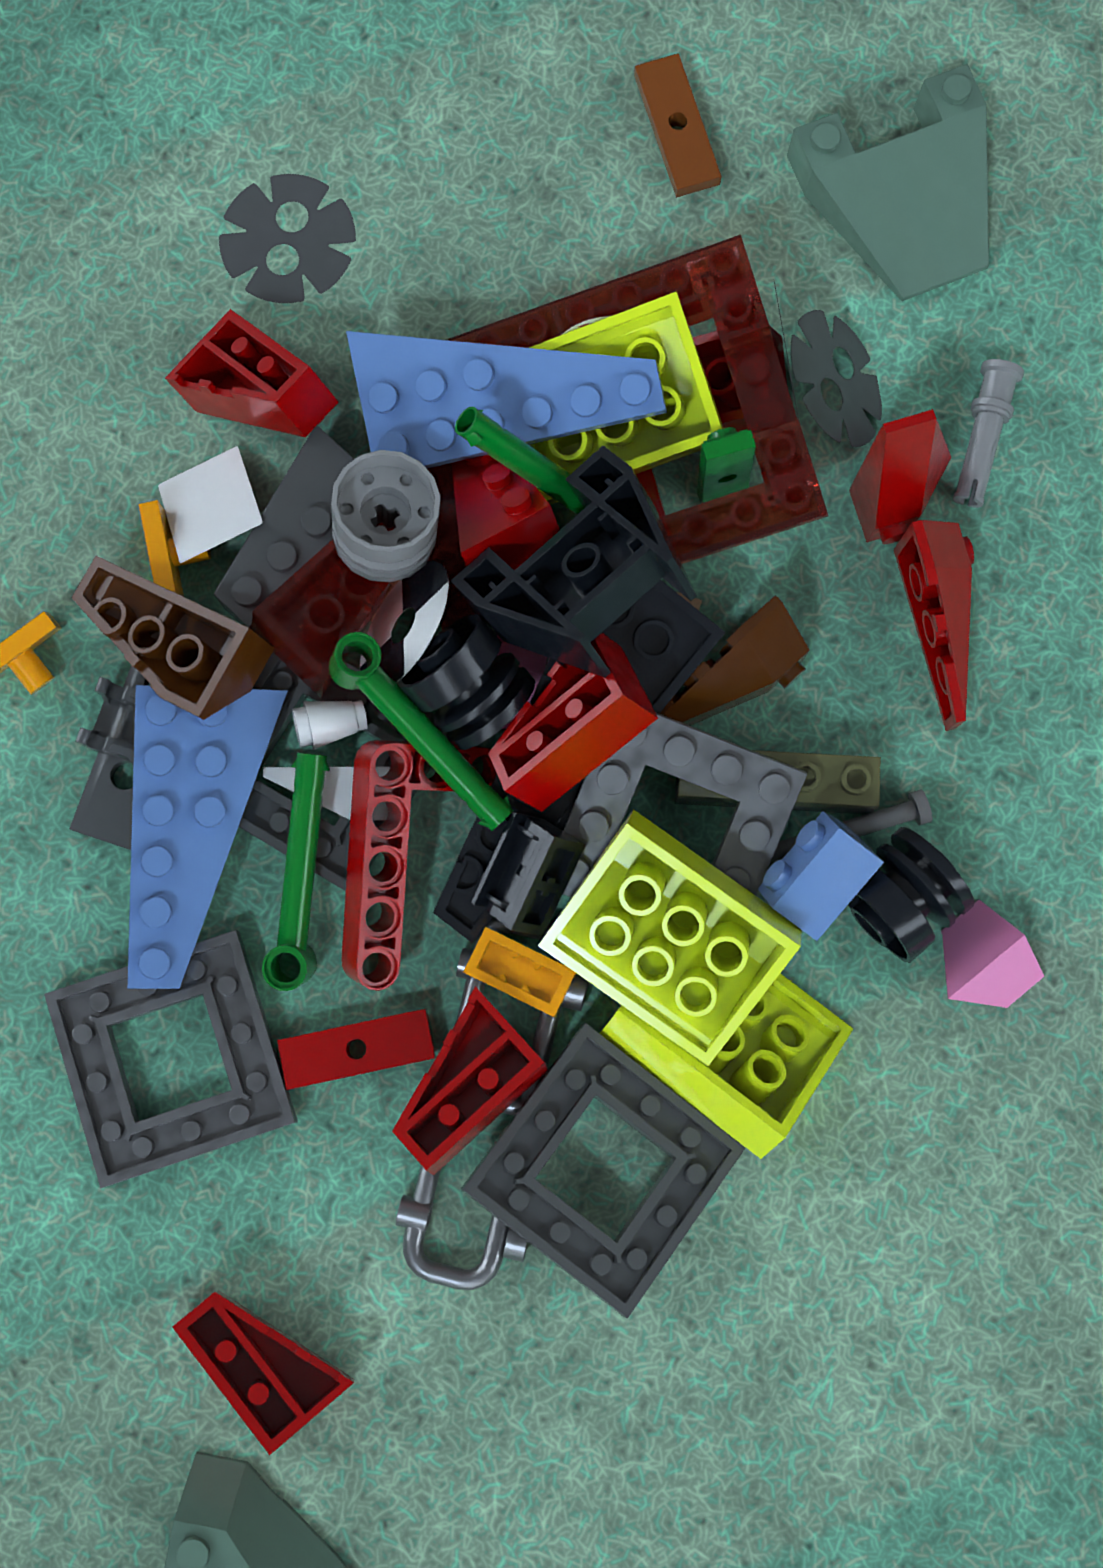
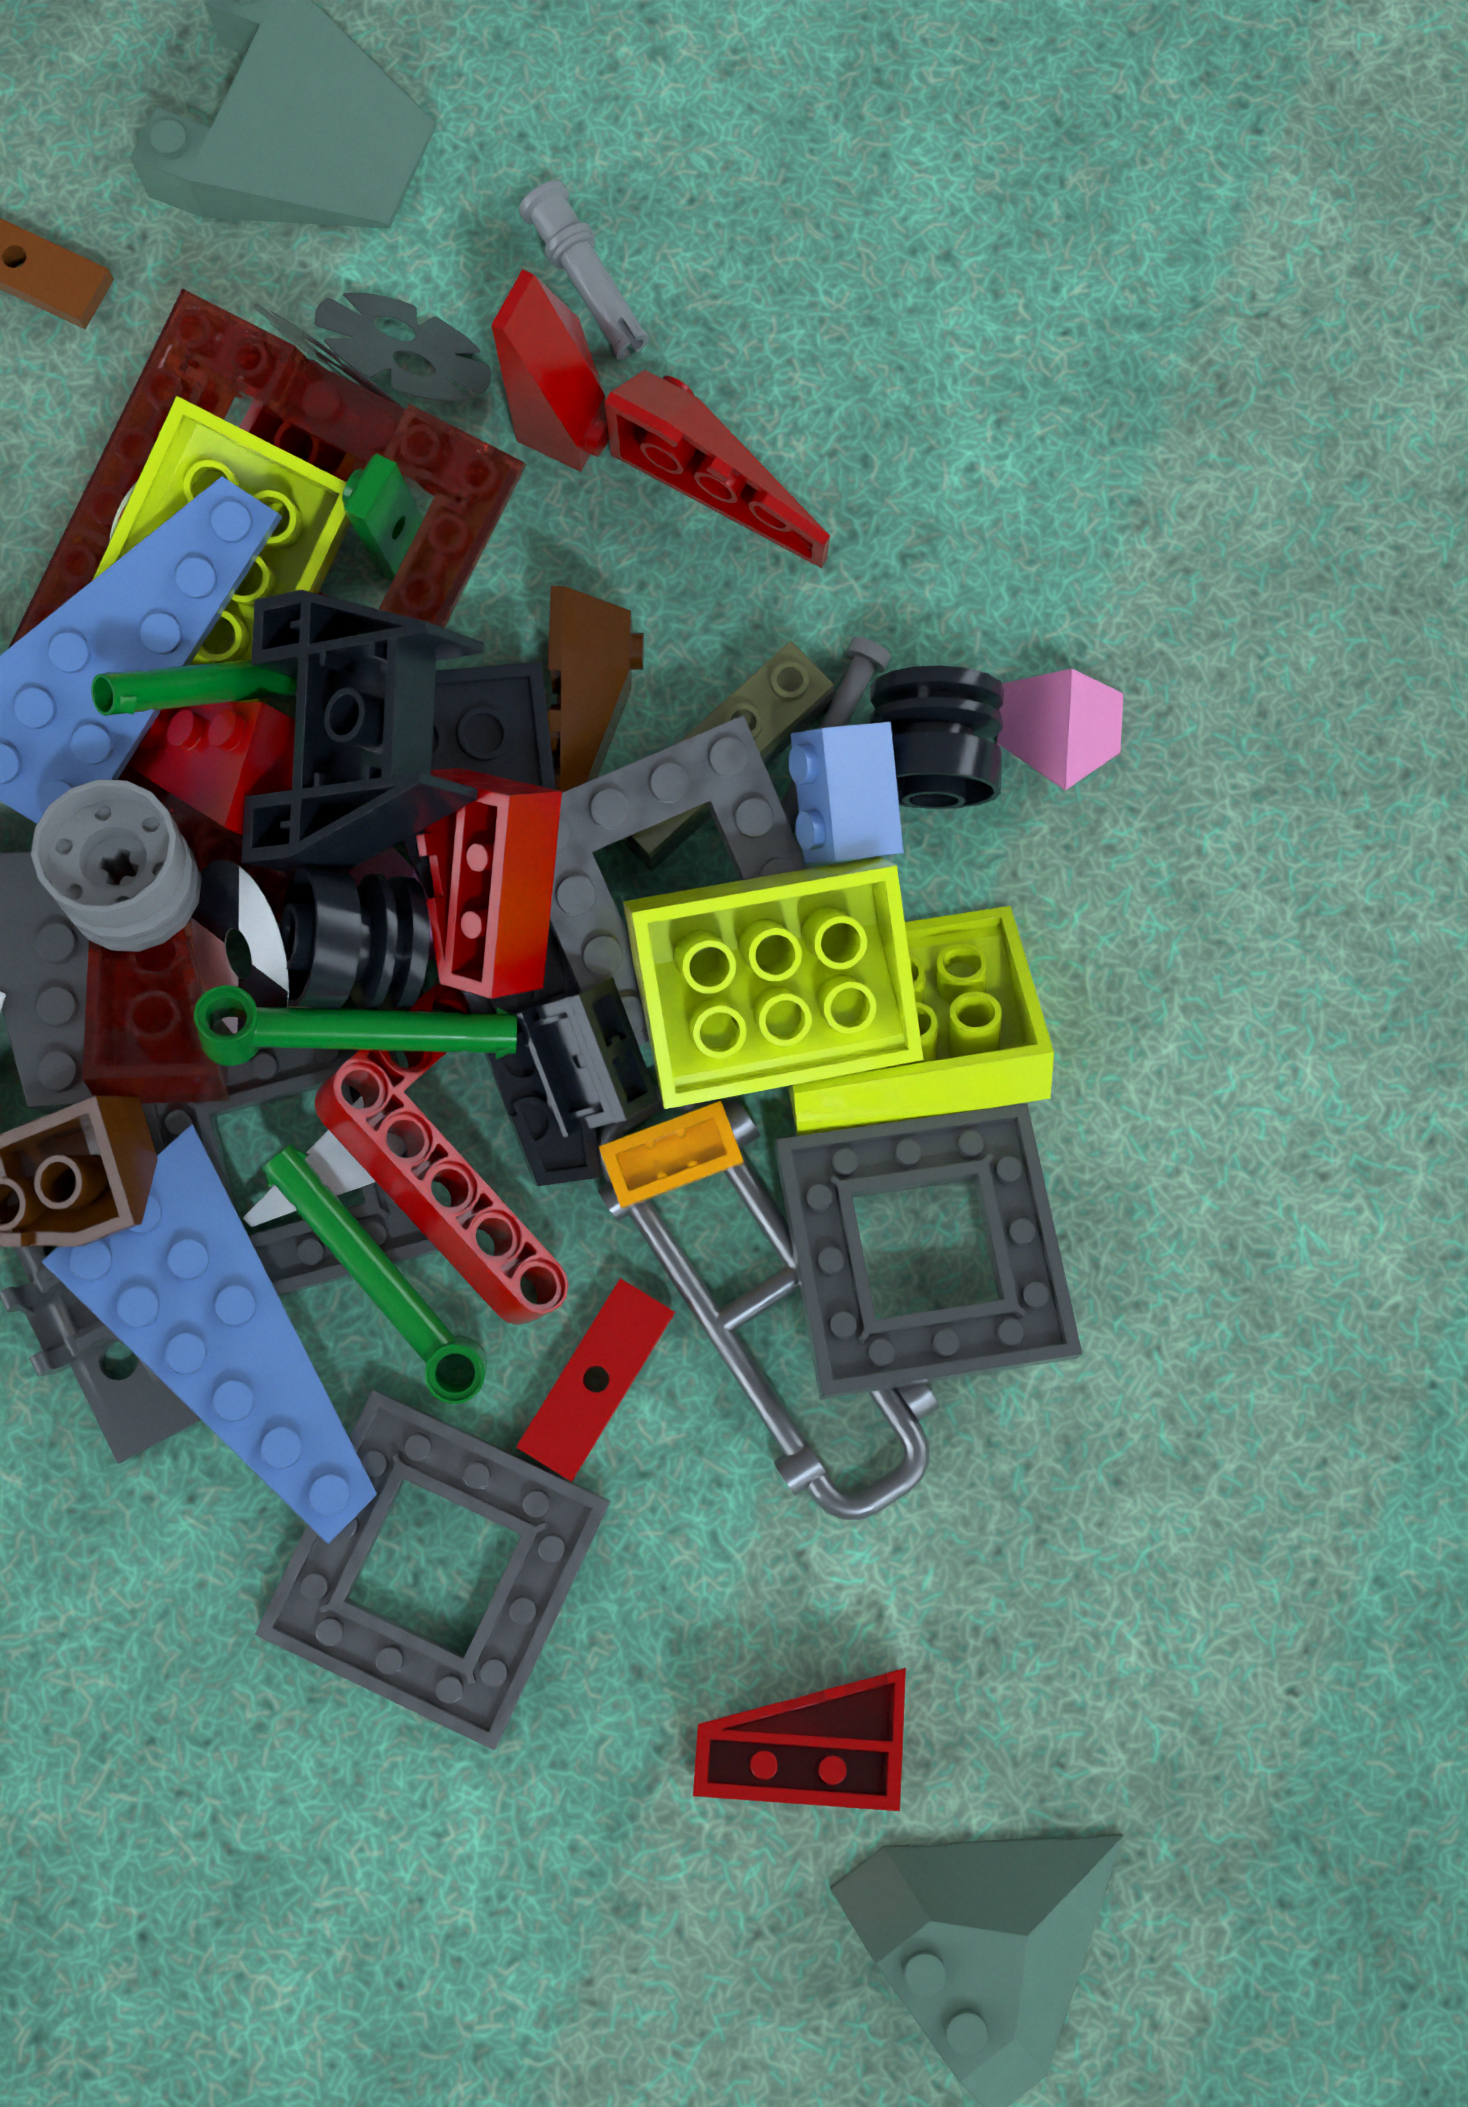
camera: 50 degrees left, 0 degrees up
(327, 721) = (259, 1114): white cone -> none
(468, 1085) = (730, 1297): red wedge -> none

